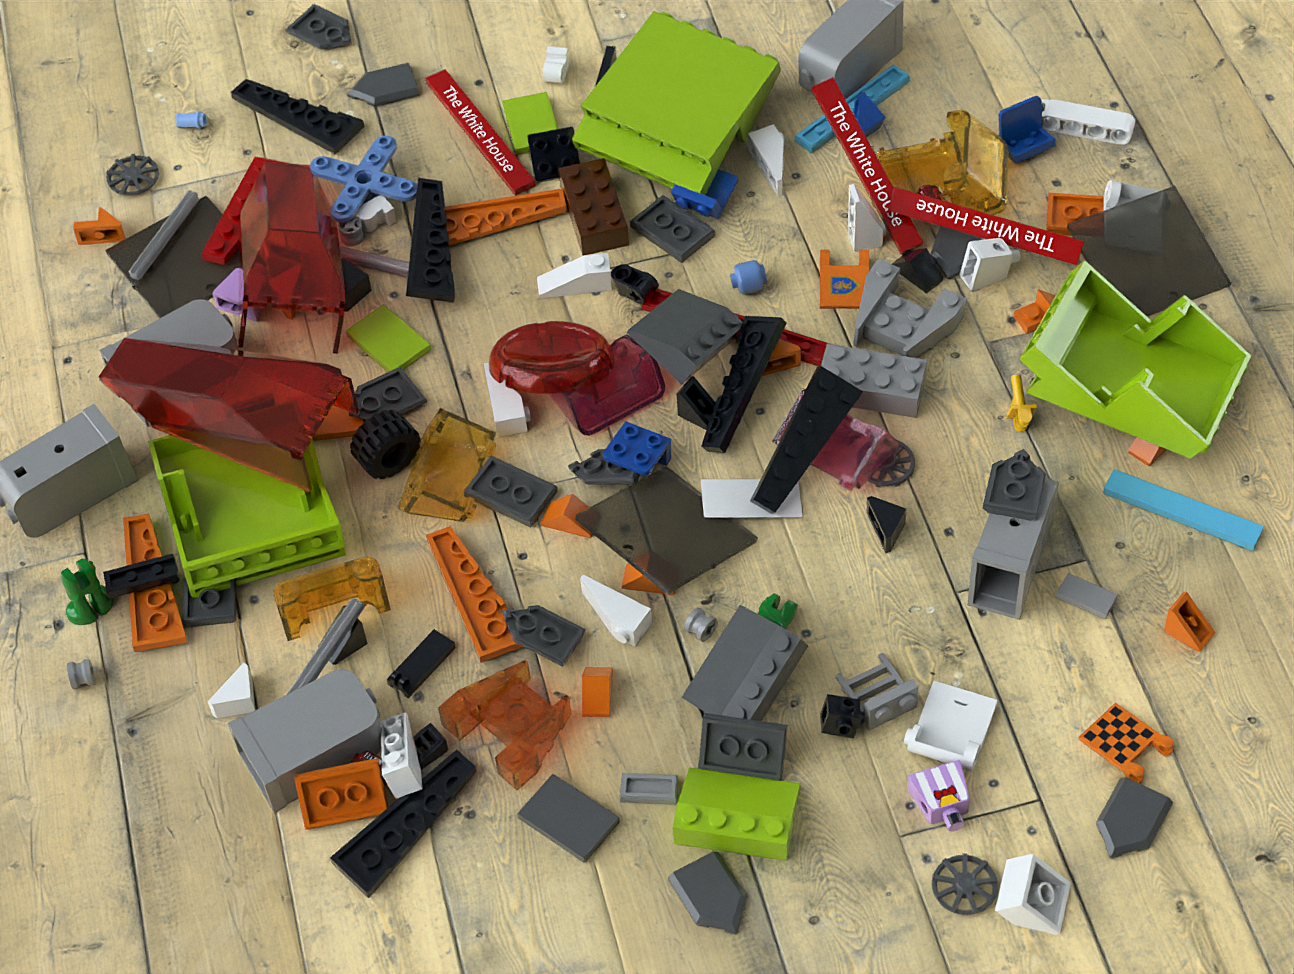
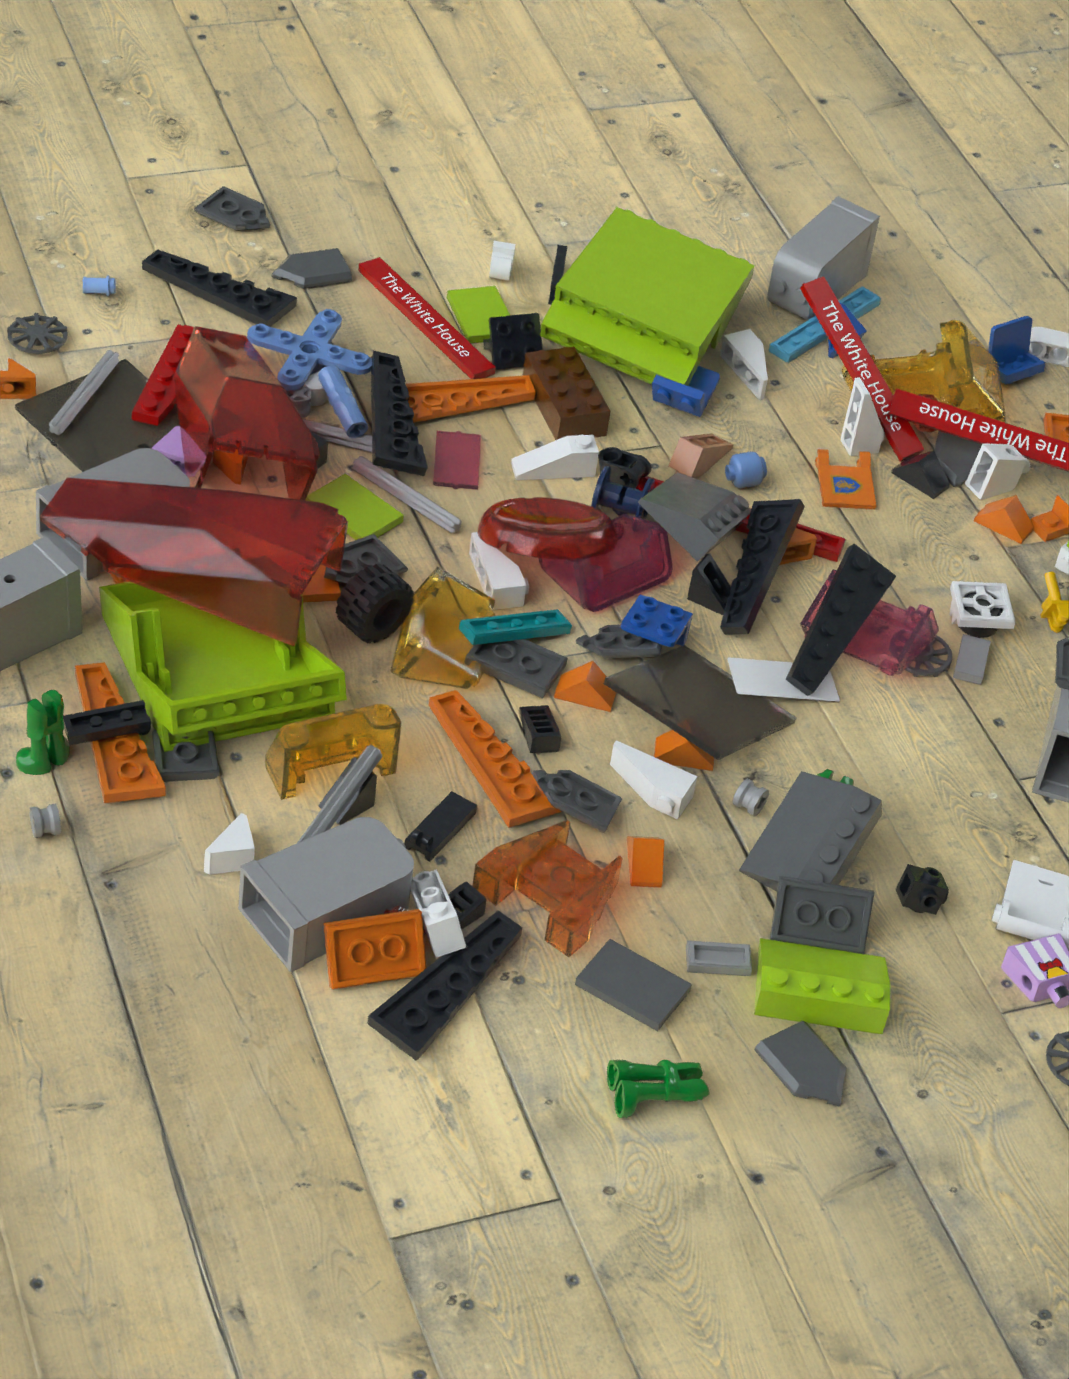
camera: 15 degrees left, 10 degrees down
(386, 232) = (343, 402): none -> medium blue axle
(438, 323) = (407, 494): none -> light grey axle
(488, 281) = (457, 460): none -> clear pink piece
(512, 458) = (515, 627): none -> teal tile
(525, 574) = (540, 734): none -> black slope
(584, 924) = (679, 1080): none -> green piece
(619, 315) = (620, 497): none -> dark blue hose
(672, 228) = (651, 422): dark grey tile -> none
(708, 261) = (698, 453): none -> nougat slope
(886, 520) = (932, 705): black slope -> none
(886, 705) = (968, 873): light grey plate -> none
(887, 380) = (920, 572): light grey brick -> none
(901, 323) = (913, 521): light grey wedge -> none
(932, 467) = (971, 659): none -> light grey tile
(948, 414) = (982, 608): none -> white piece
(991, 313) = (1006, 518): none -> orange slope

